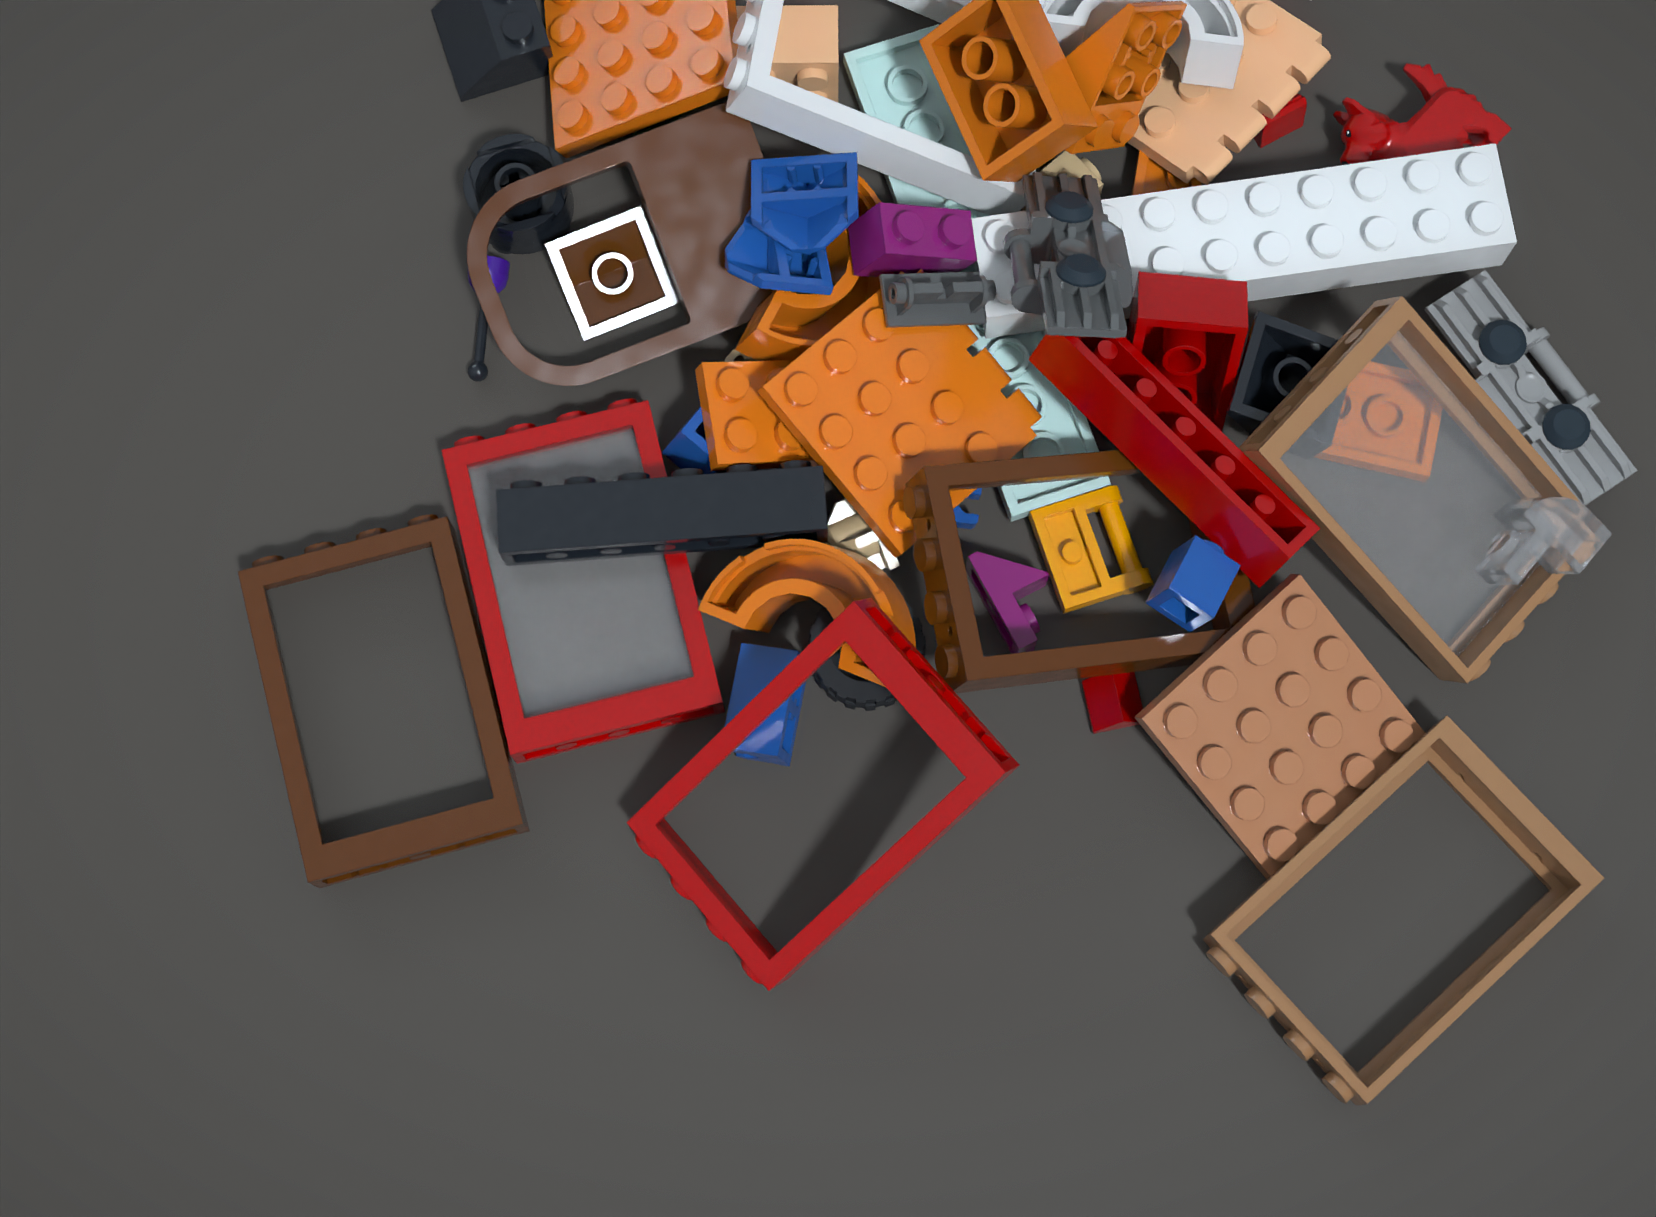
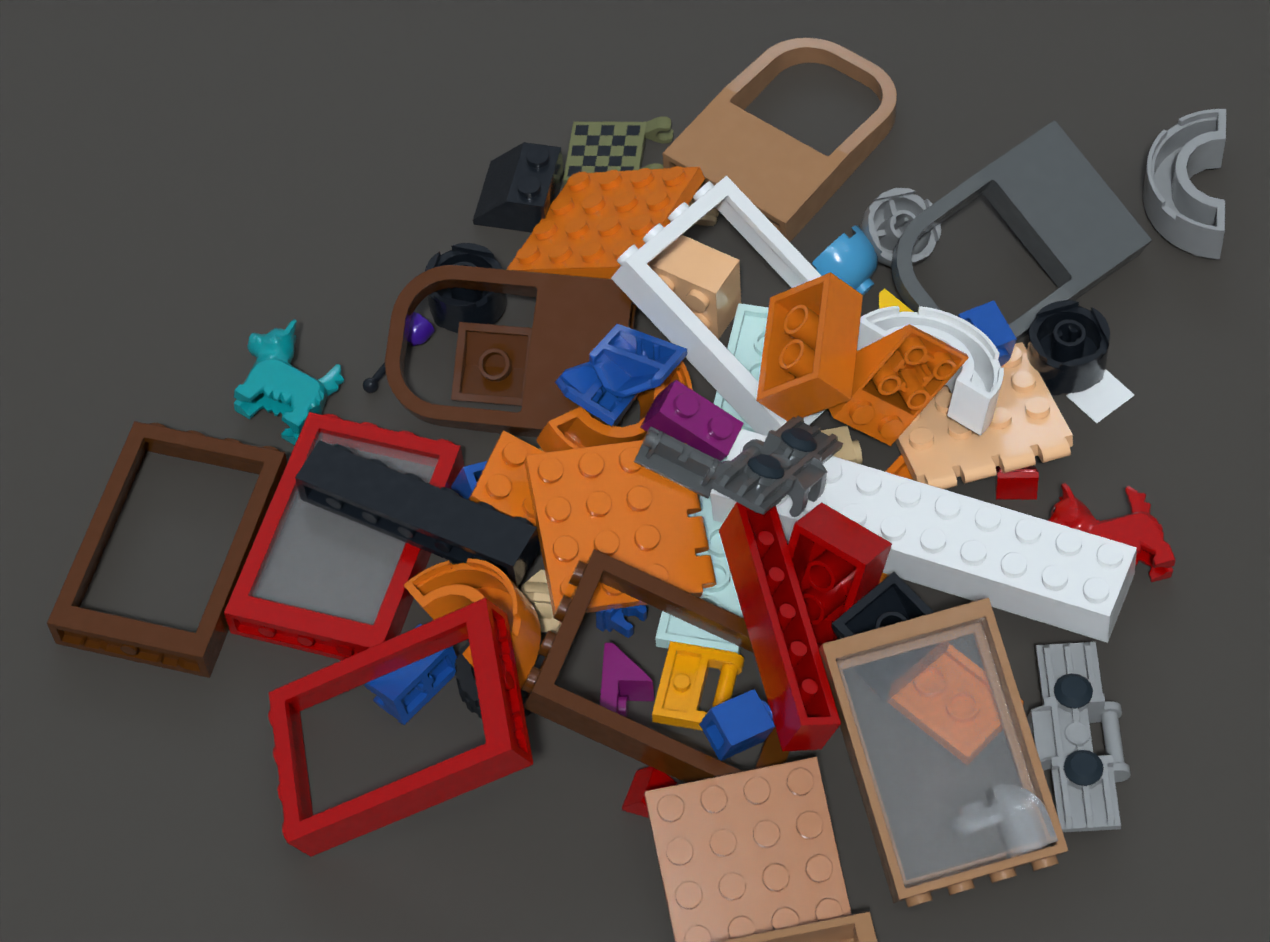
camera: 35 degrees right, 20 degrees down
(379, 430) = (279, 385): none -> teal animal

